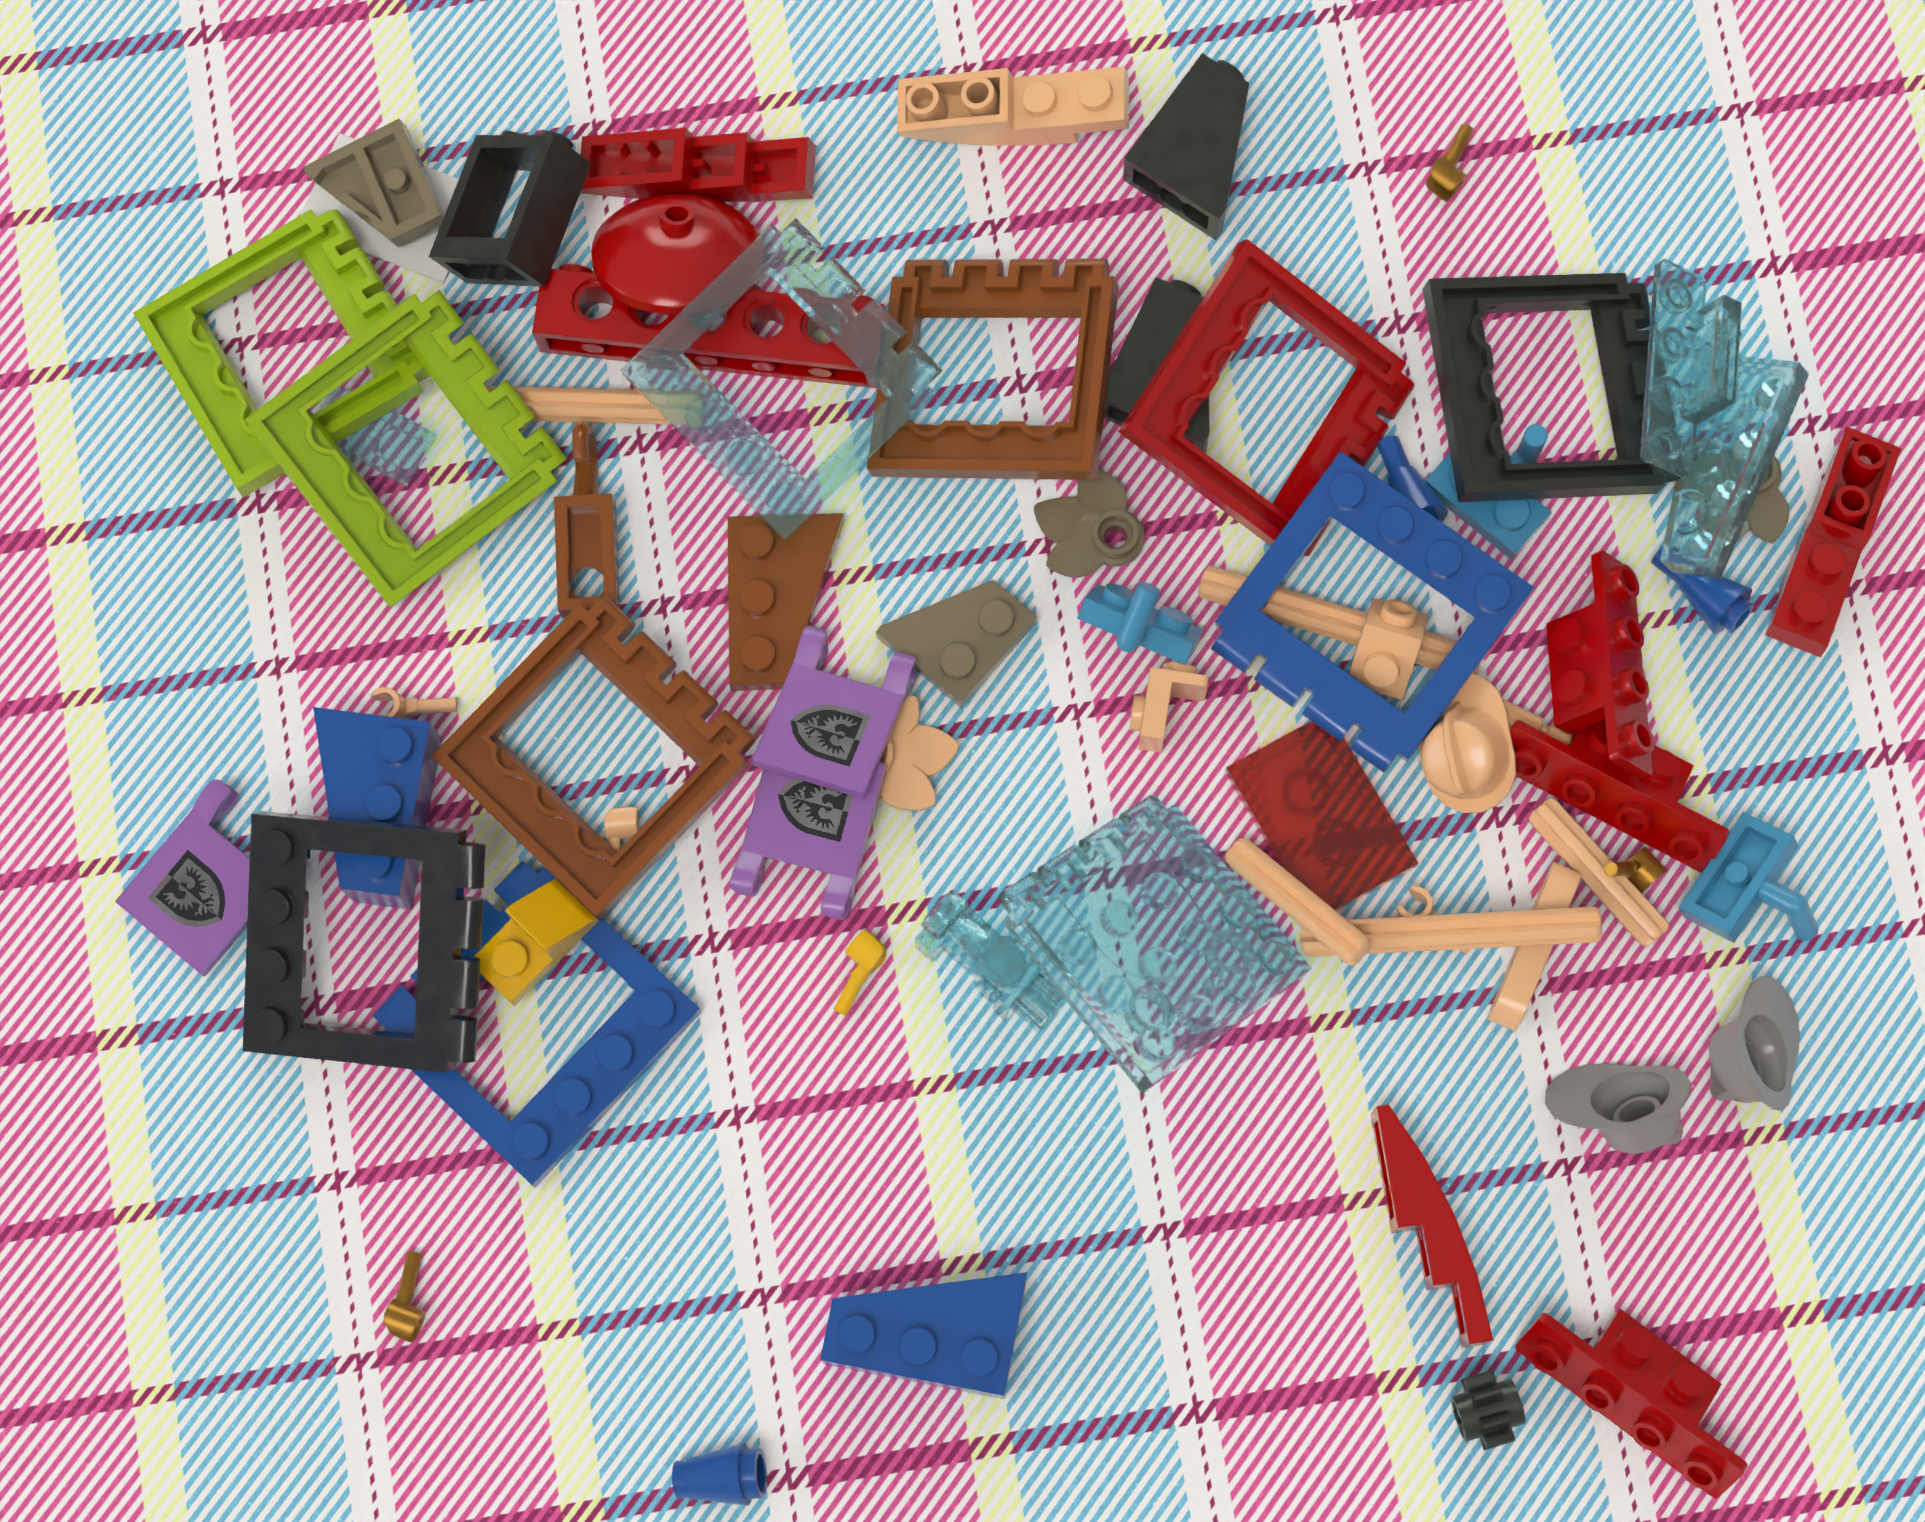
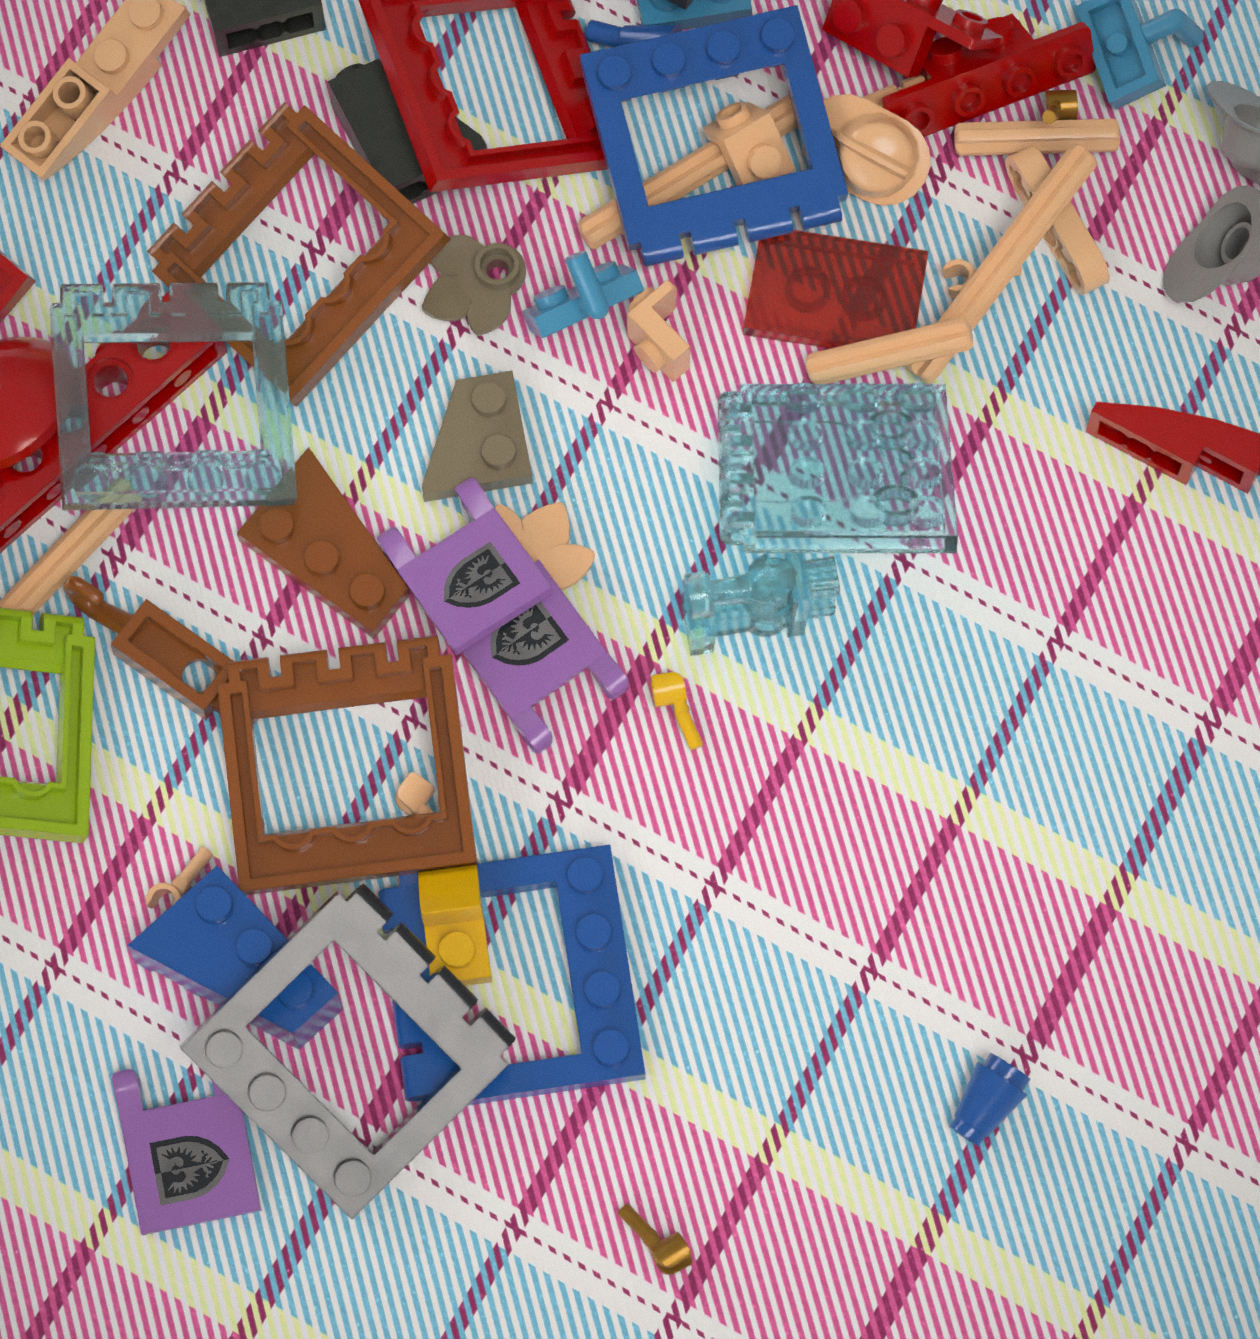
camera: 55 degrees left, 5 degrees down
(931, 1334) = (1007, 859): blue wedge -> none

